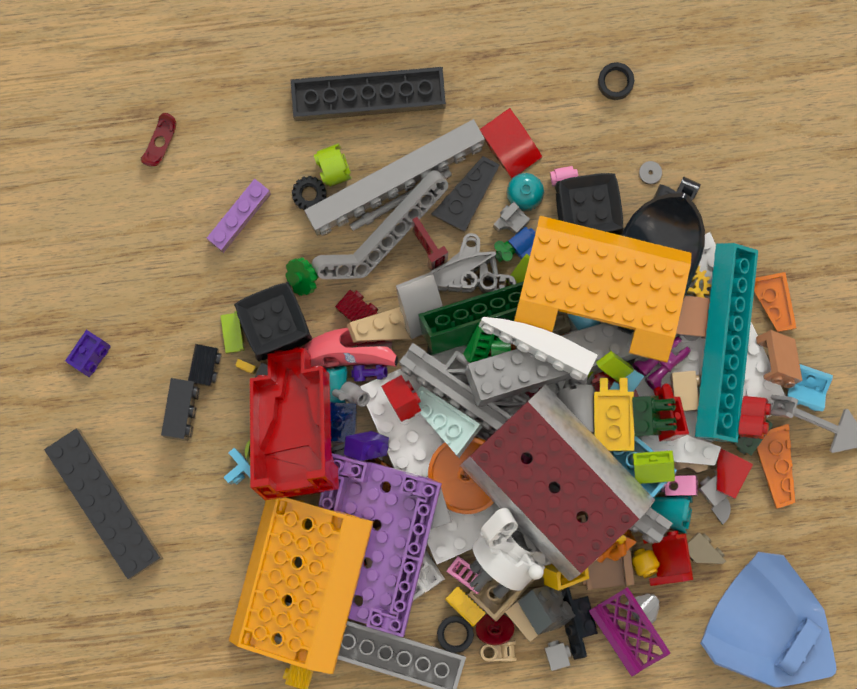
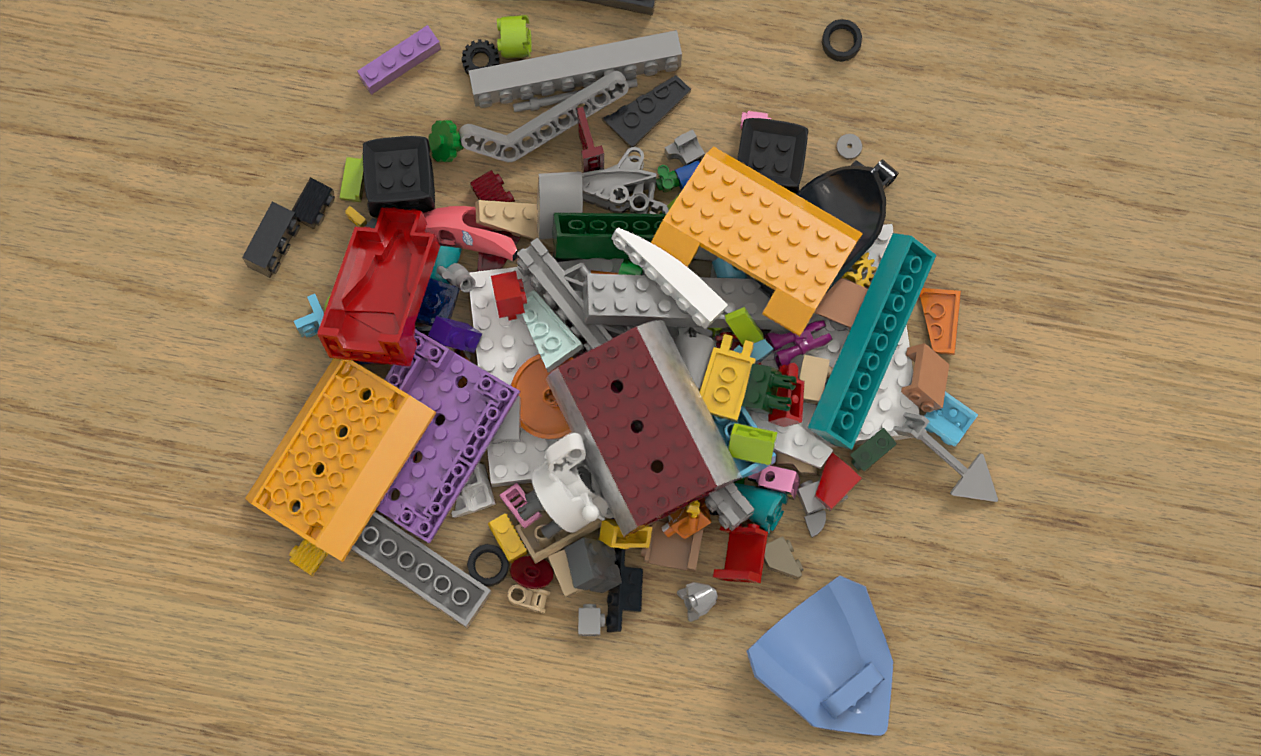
camera: 15 degrees right, 5 degrees down
(88, 353) = (195, 154): dark purple bracket -> none
(103, 503) = (159, 314): black brick -> none
(359, 372) = (474, 259): dark purple bar -> none
(475, 354) = (597, 266): green slope -> none
(510, 143) = (709, 70): red slope -> none
(525, 191) = (710, 125): teal cylinder -> none
(619, 638) = (662, 622): magenta fence -> none
(645, 563) = (715, 552): yellow head -> none
(753, 417) = (877, 429): red brick -> none
(776, 463) = (890, 486): orange wing -> none

